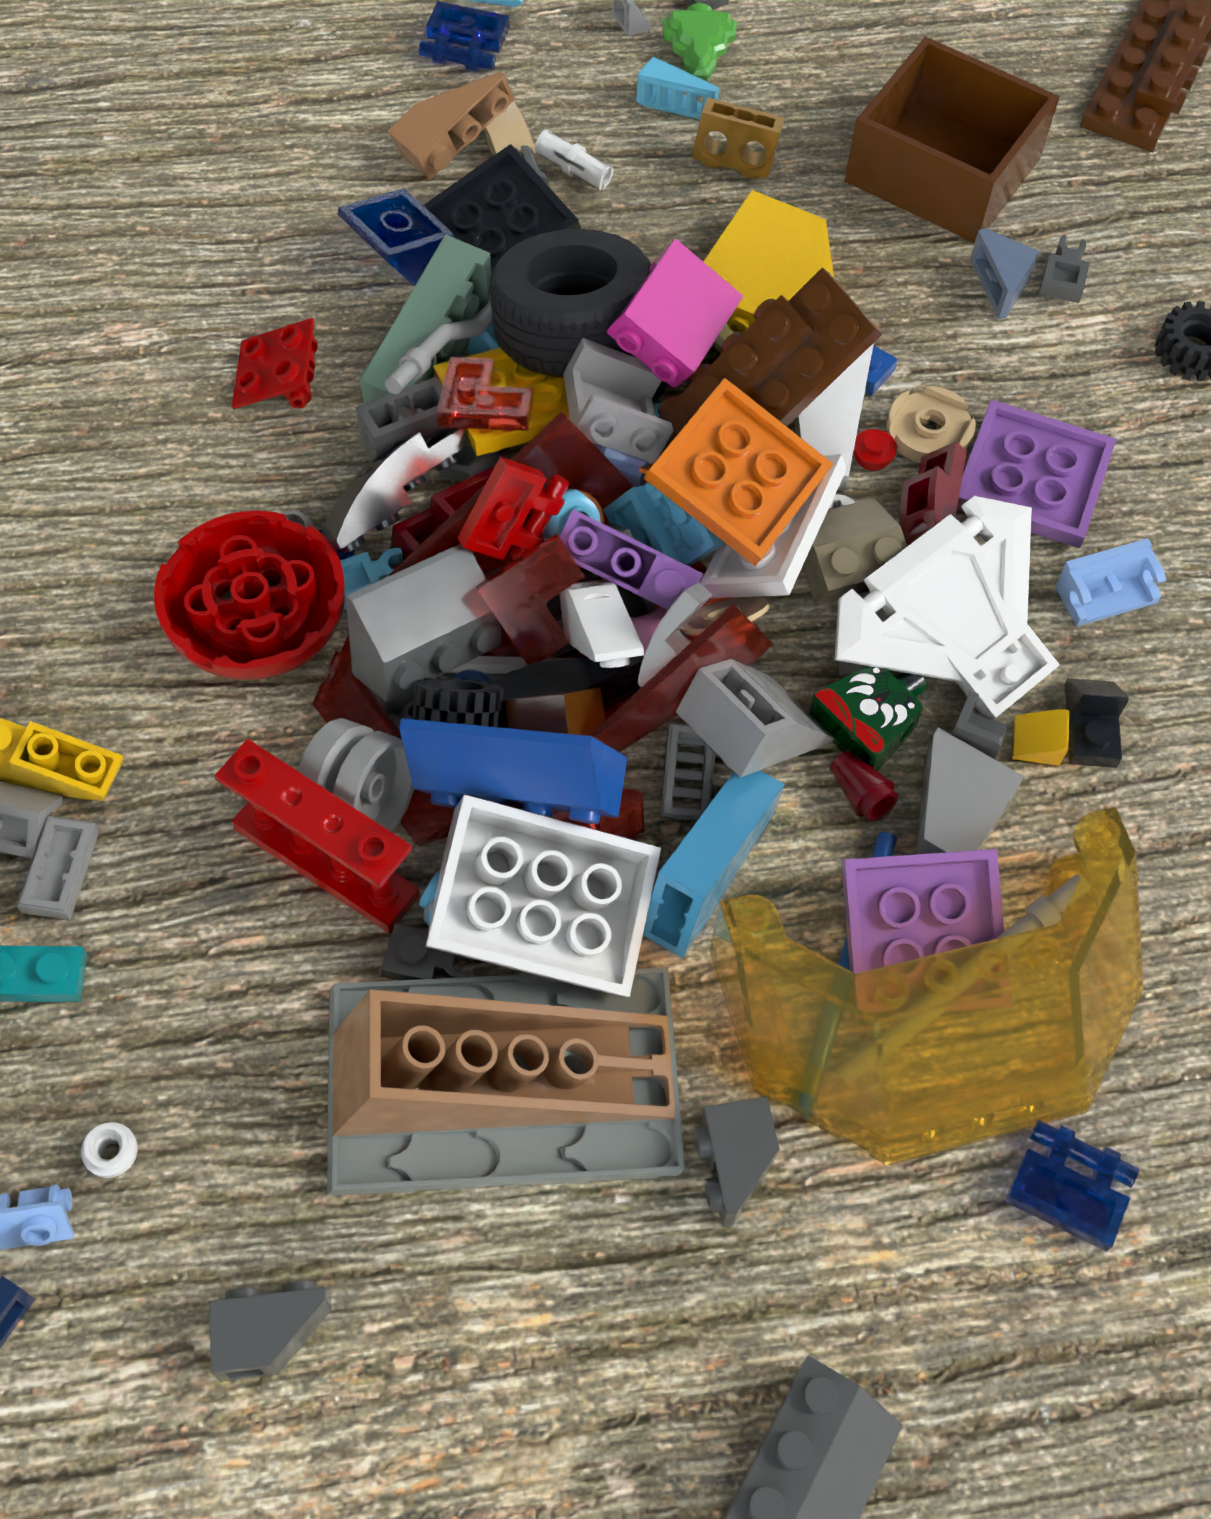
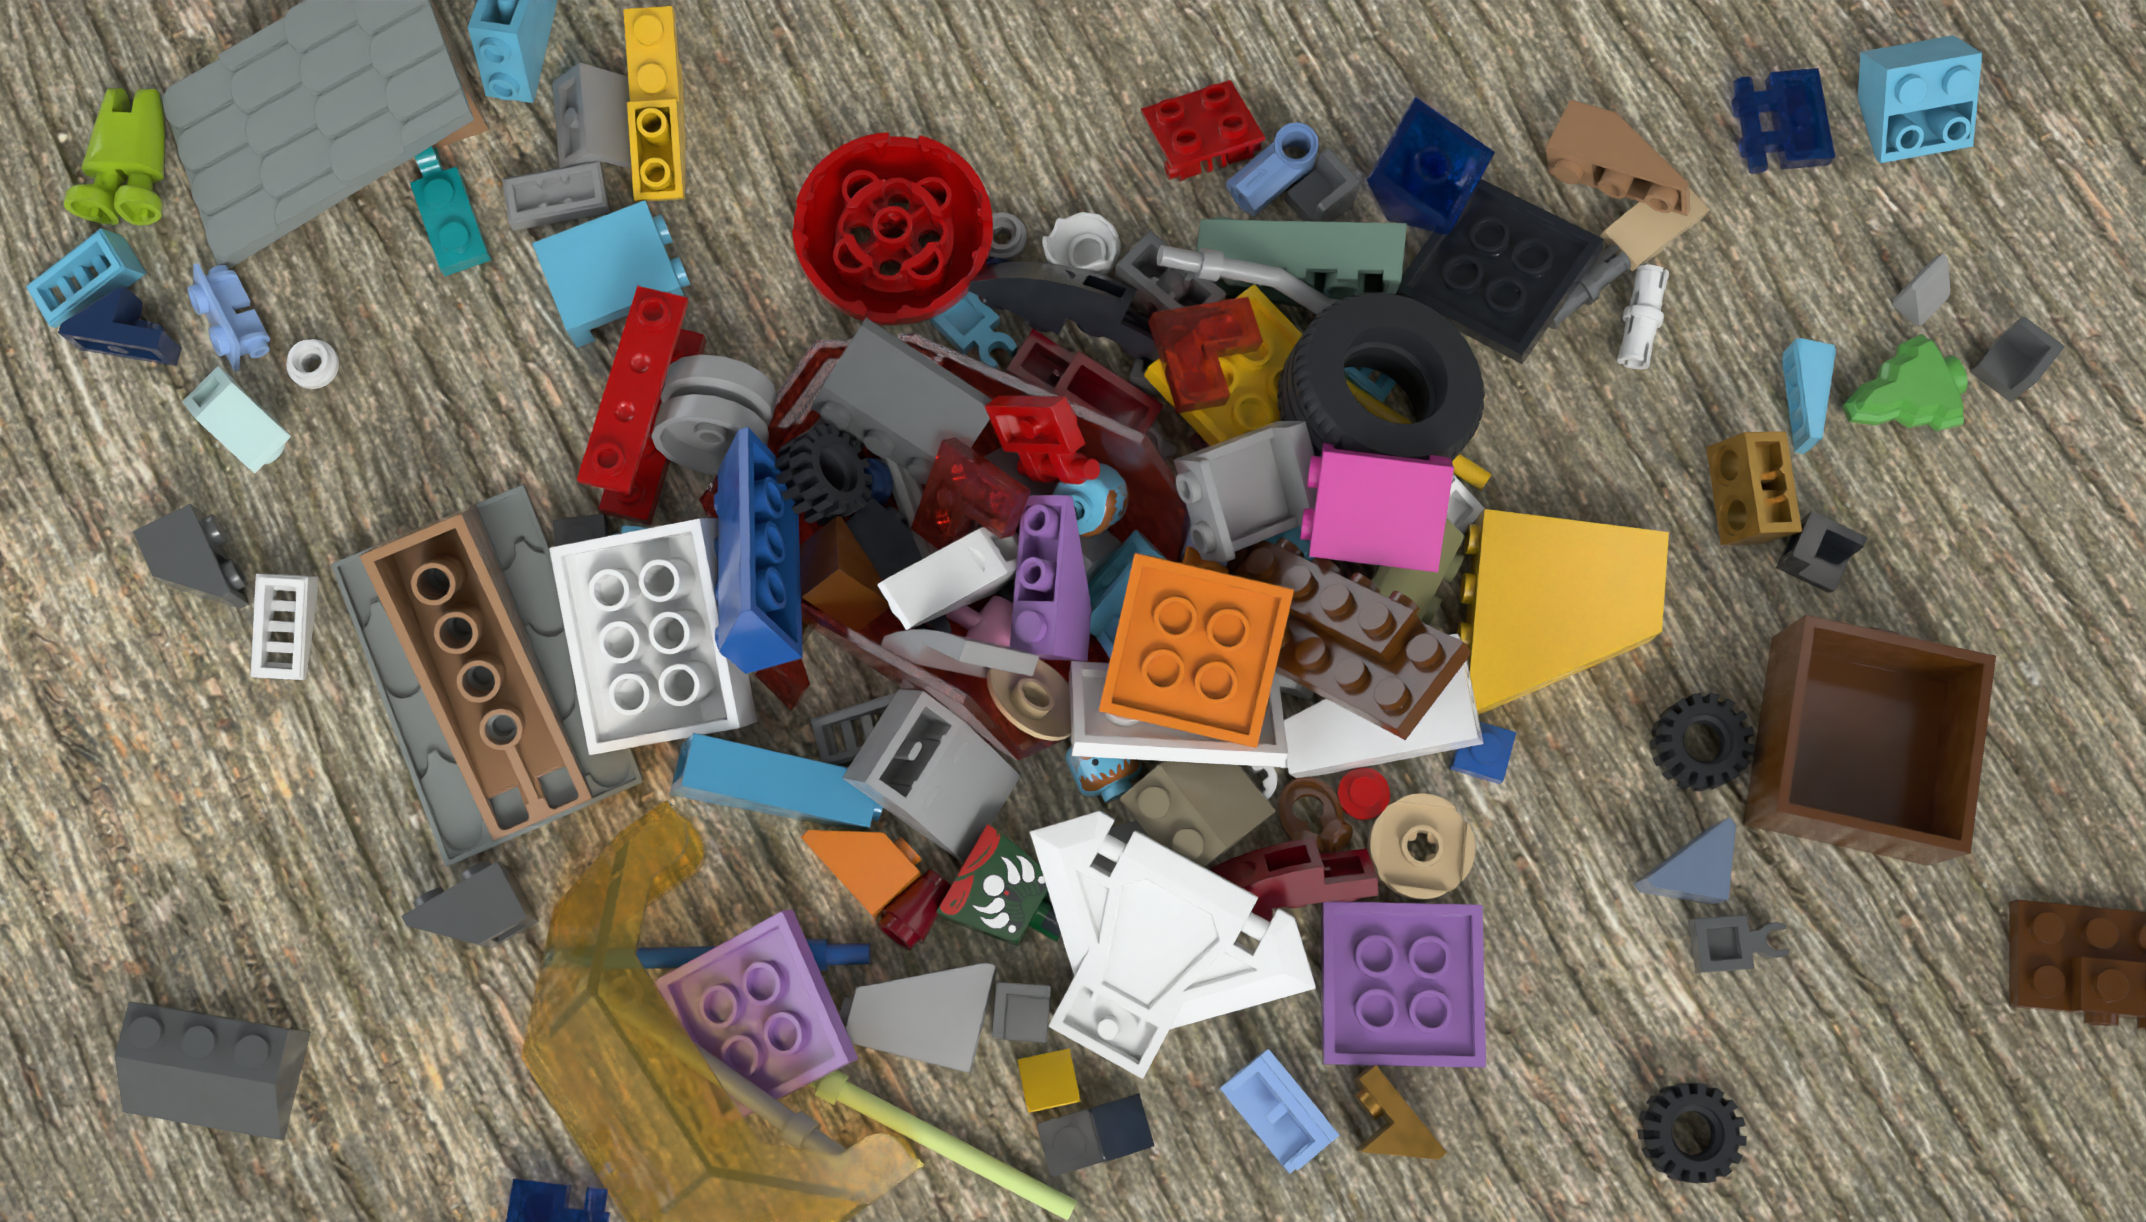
camera: 70 degrees right, 15 degrees up
(131, 1238) = (236, 420): none -> light aqua slope
(162, 841) = (602, 262): none -> medium azure panel
(331, 471) = (1083, 243): none -> white hair
(338, 328) = (1274, 171): none -> medium blue piece
(373, 303) = (1325, 191): none -> dark grey panel
(383, 1243) = (263, 624): none -> white slope
(791, 613) = (1102, 775): none -> medium azure head
(797, 132) = (1820, 552): none -> black panel
(814, 809) = (867, 864): none -> orange slope
(883, 473) = (1335, 832): none -> reddish brown piece
(913, 221) = (1725, 722): none -> black tyre
(1063, 838) = (836, 1088): none -> yellowish green bar
(1141, 507) = (1404, 1131): none -> pearl gold slope

